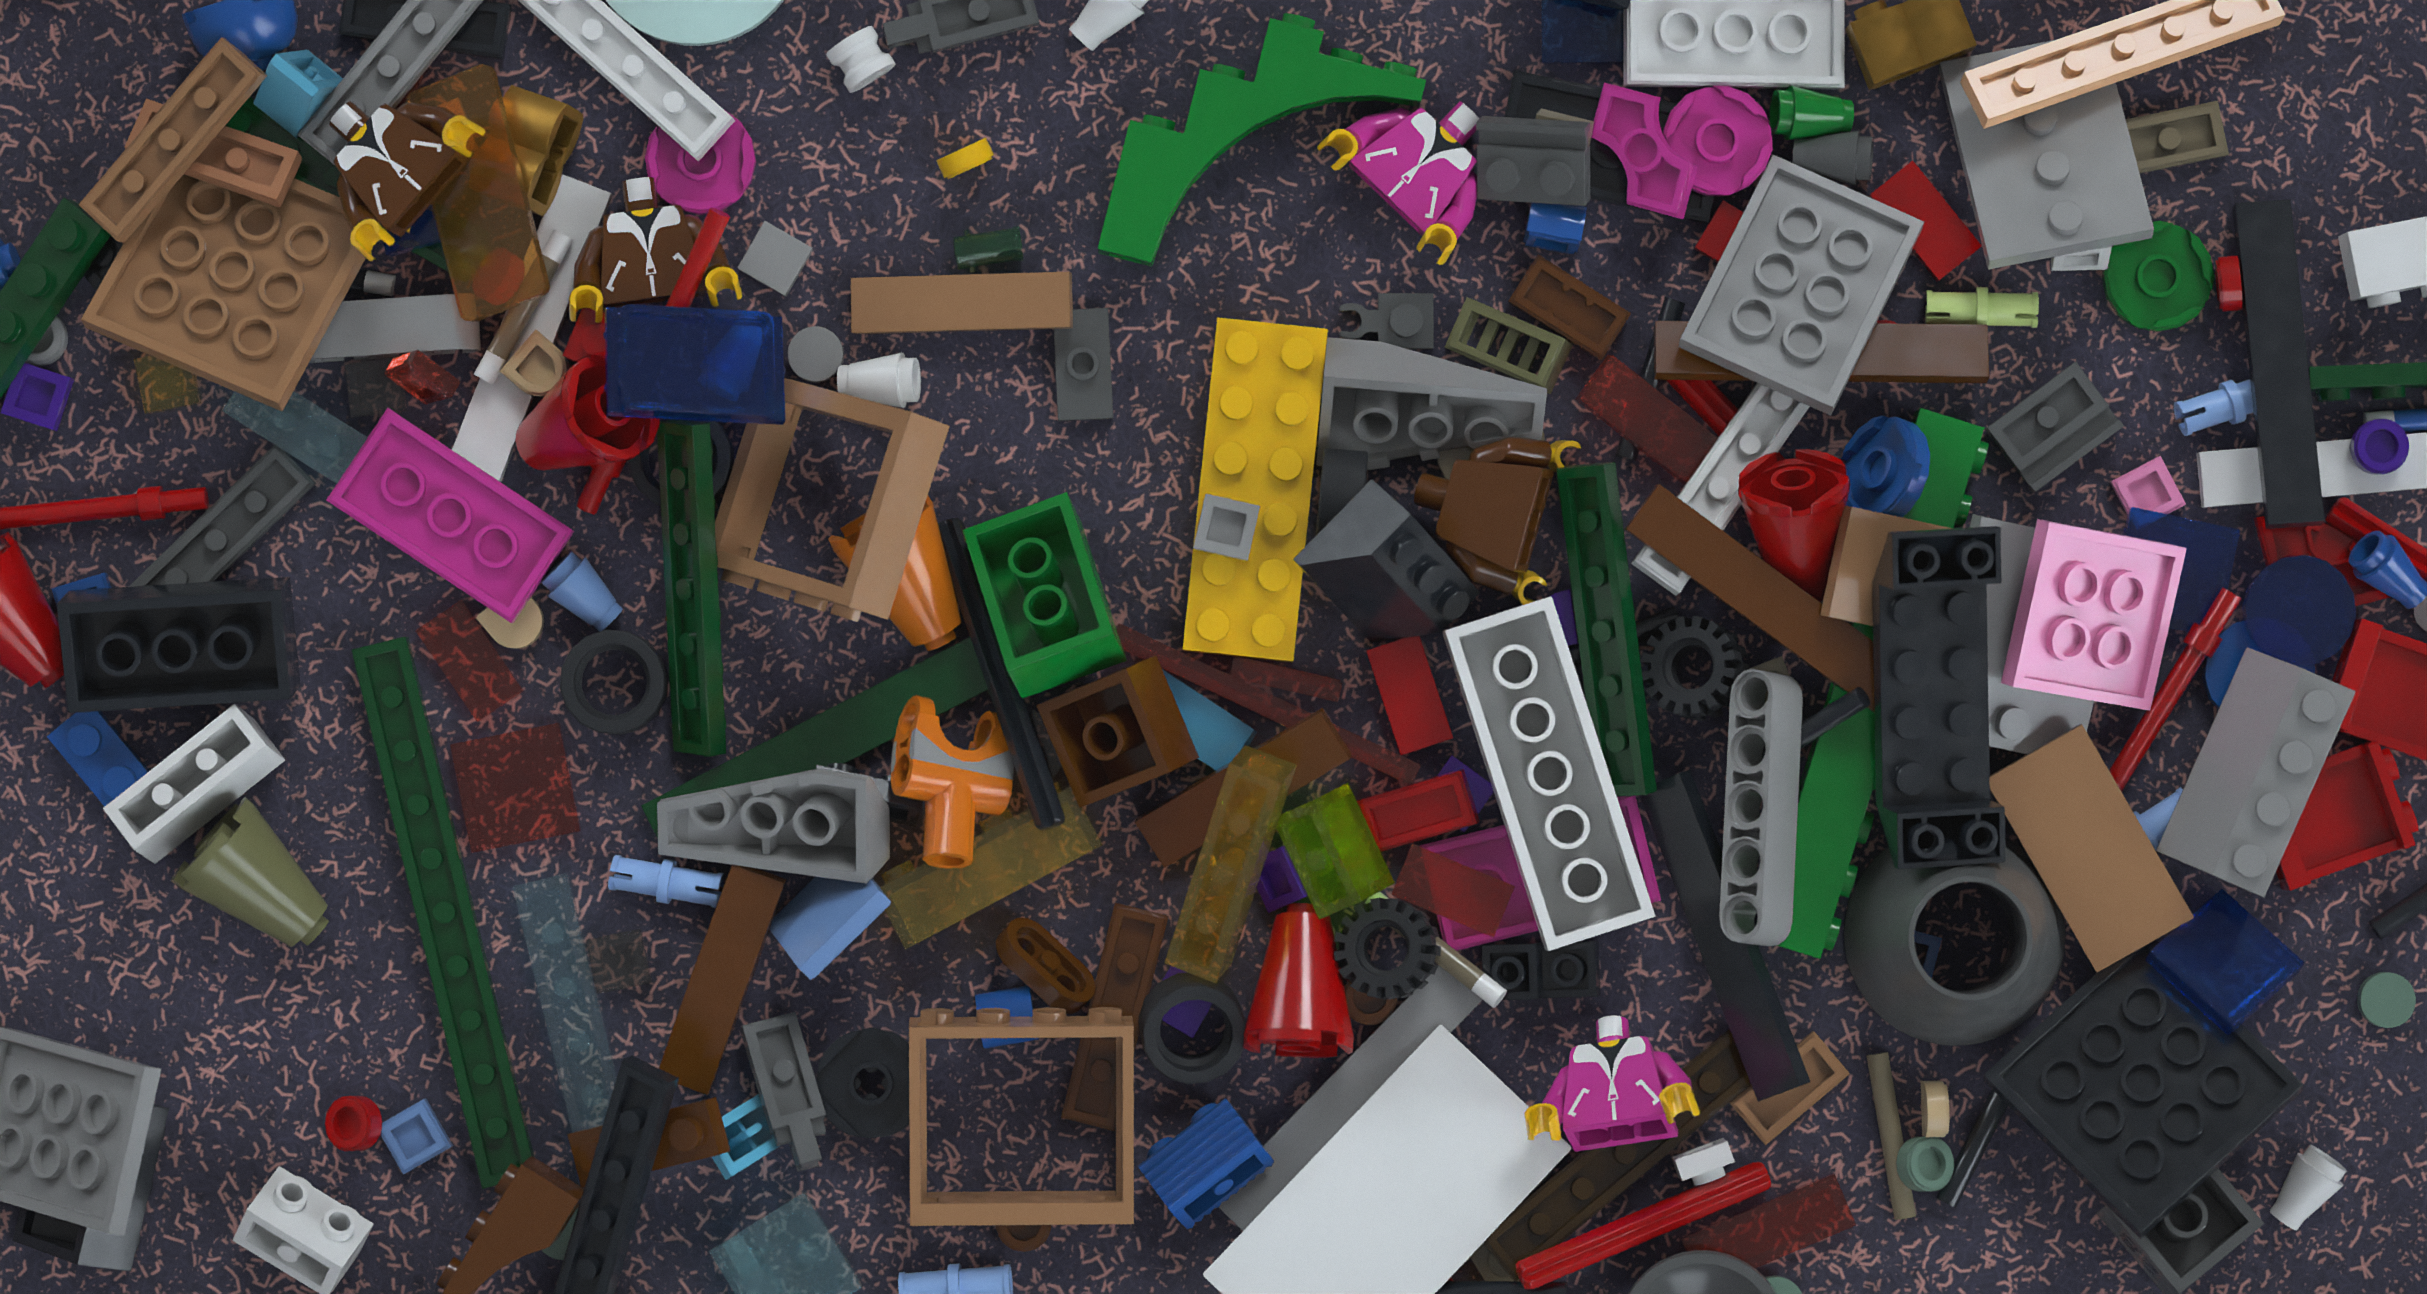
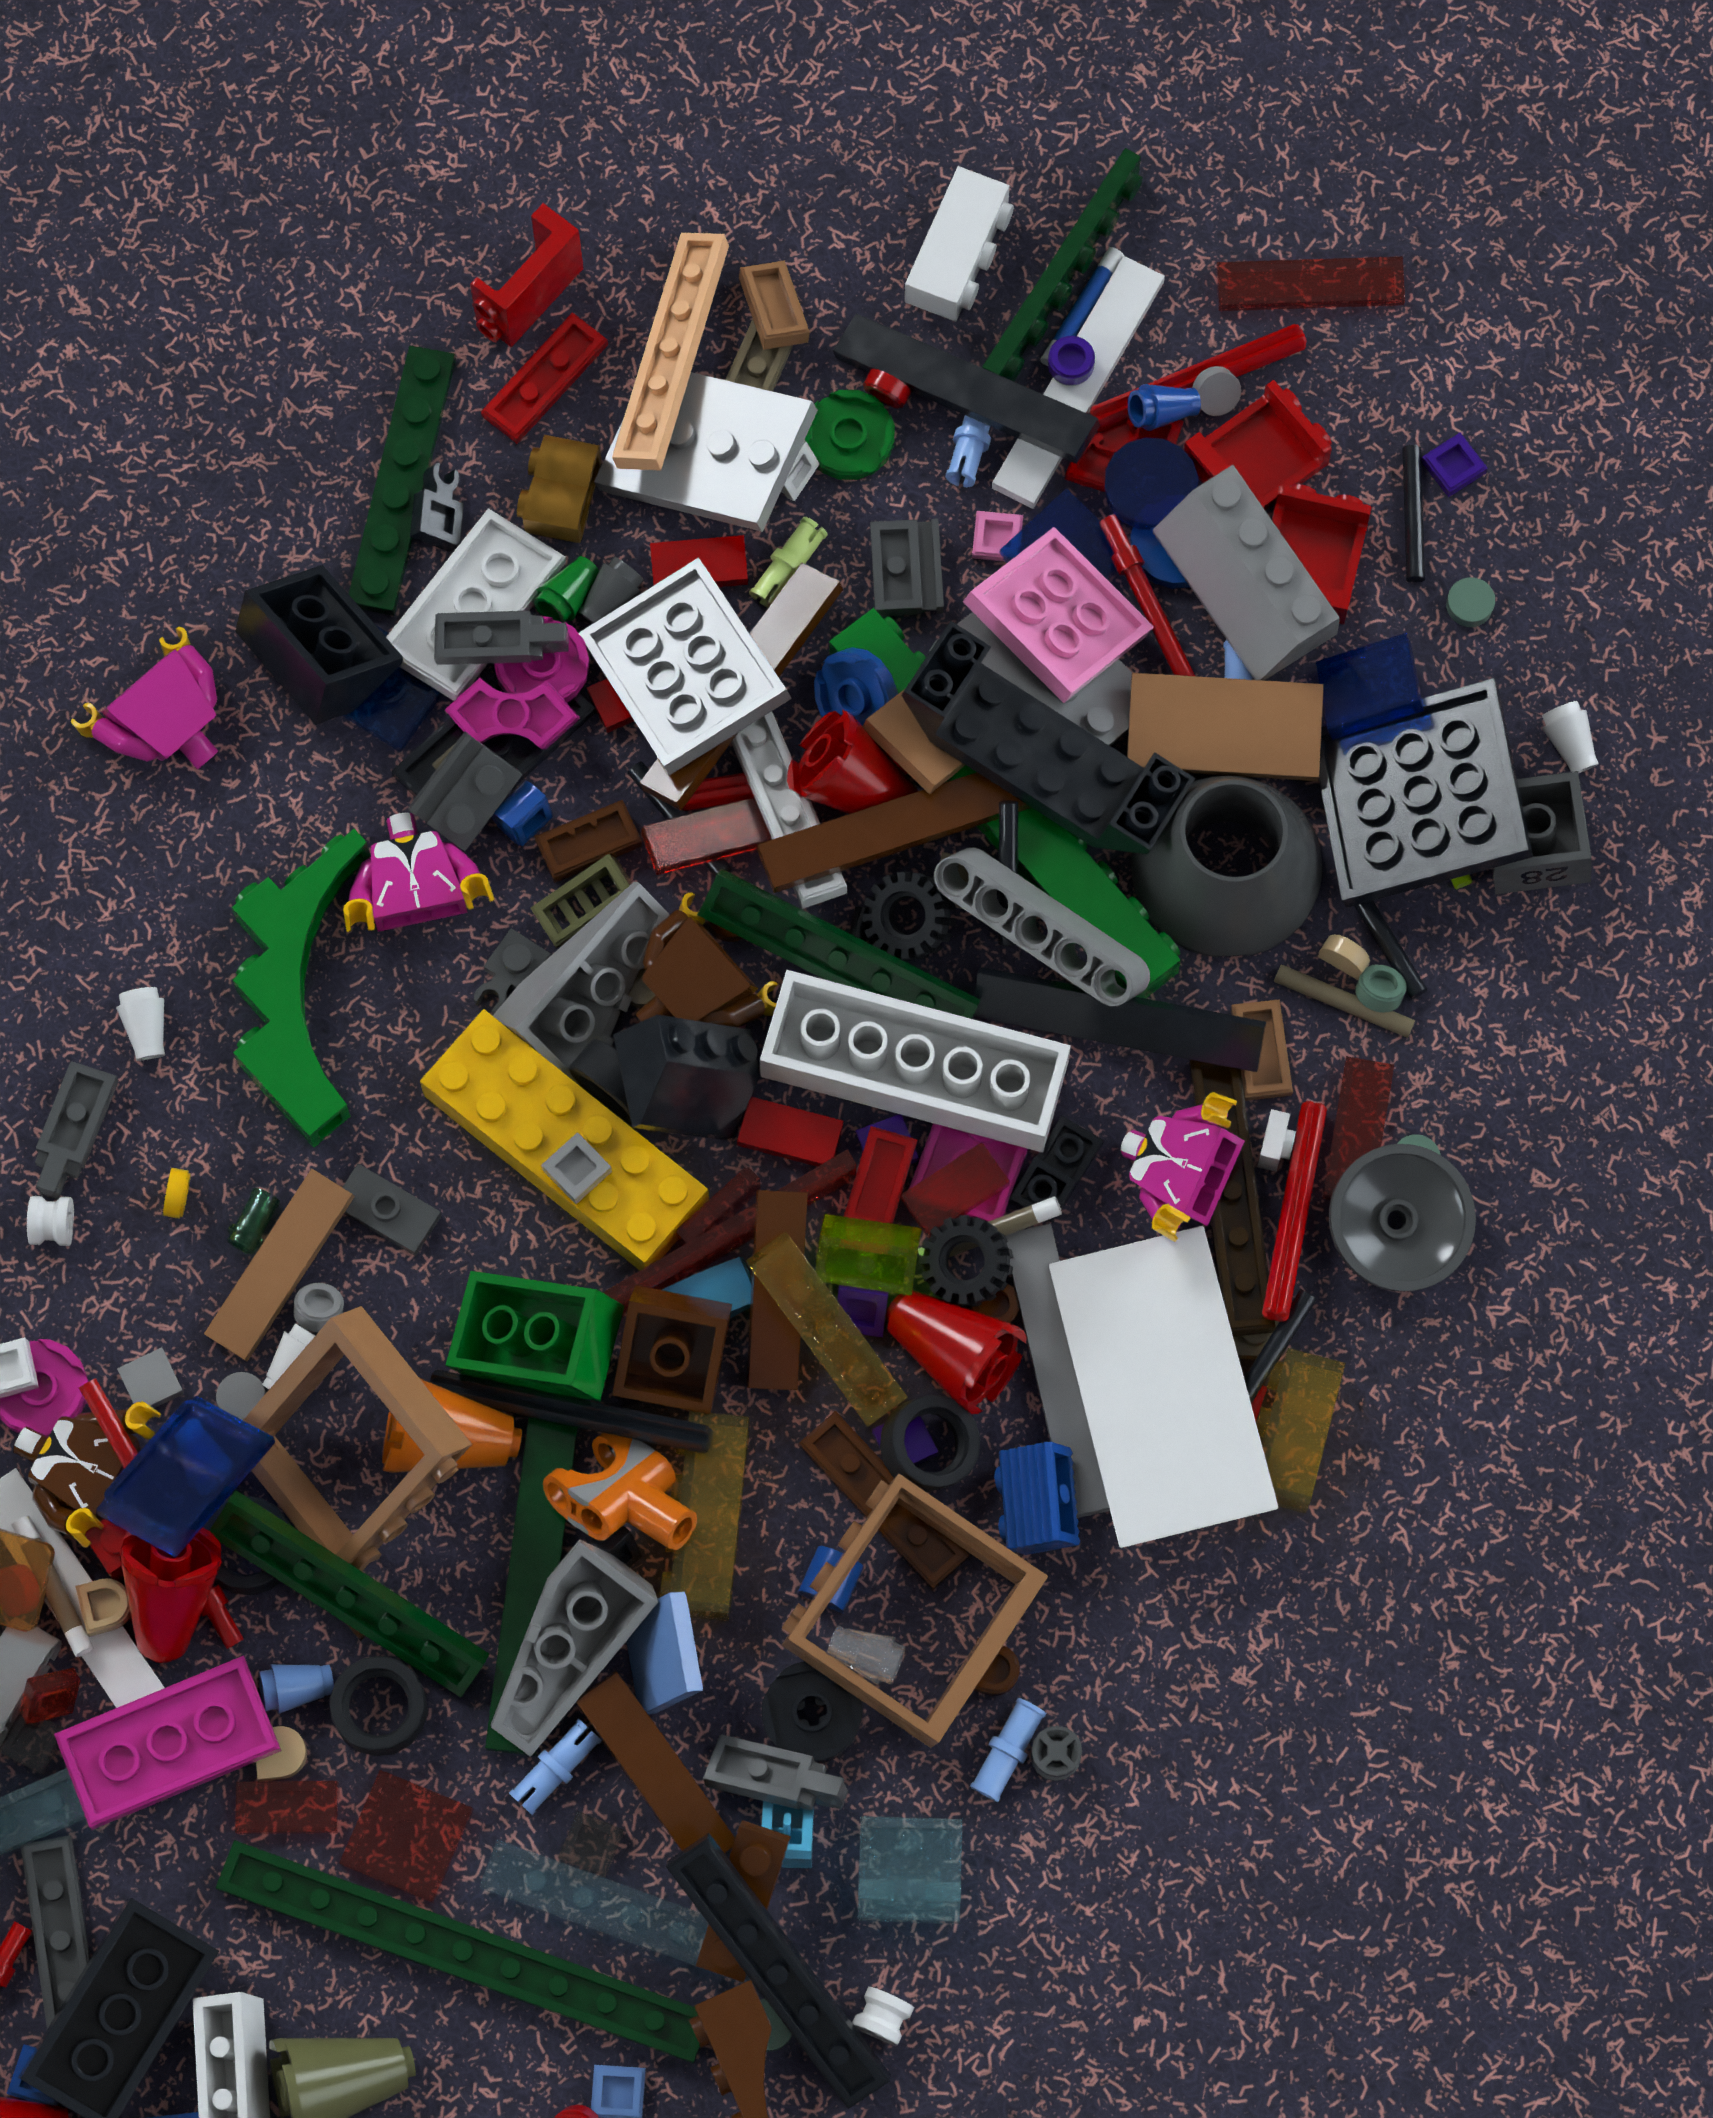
camera: 60 degrees left, 15 degrees down
(942, 1111) = (867, 1653): none -> clear cone
(946, 367) = (316, 1305): none -> light grey tile
(1045, 965) = (809, 1523): reddish brown plate -> none
(1706, 83) = (496, 637): none -> dark grey hinge
(2244, 113) = (774, 305): none -> medium nougat tile

